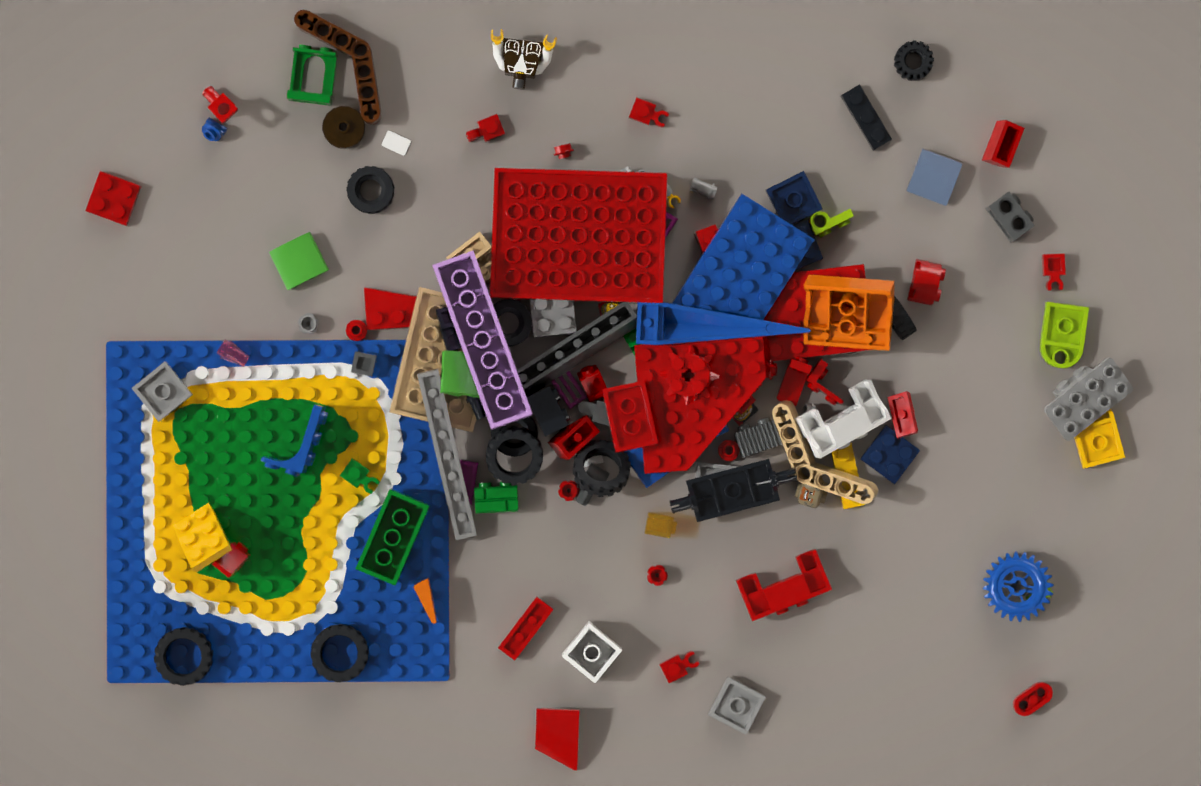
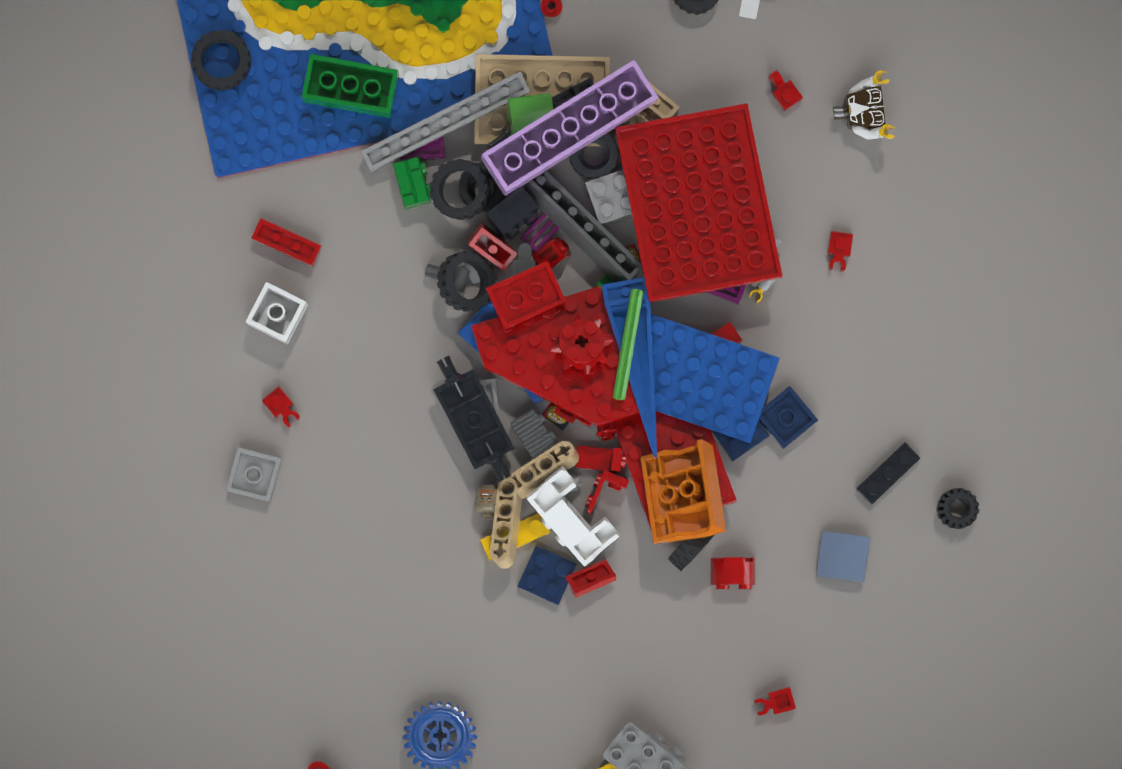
camera: 70 degrees right, 5 degrees down
(357, 474) = (405, 38): green plate -> none
(363, 364) = (519, 20): dark grey plate -> none
(387, 309) = (579, 32): red wing -> none
(424, 593) = (298, 132): orange slope -> none
(558, 734) = (184, 299): red slope -> none
(563, 151) = (781, 172): red plate -> none
(563, 490) = (432, 250): red plate -> none
(657, 581) = (365, 359): red plate -> none
(660, 525) = (421, 354): clear yellow brick -> none
(699, 332) = (628, 344): none -> bright green axle
(703, 188) = (776, 323): light grey pin -> none
(721, 450) = (514, 415): red plate -> none
(786, 592) = (378, 495): red bracket -> none
(841, 220) = (776, 469): lime plate -> none
(1003, 143) = (894, 619): red brick -> none
(1005, 220) = (816, 639): dark grey brick -> none
(1063, 331) = (714, 726): lime plate -> none

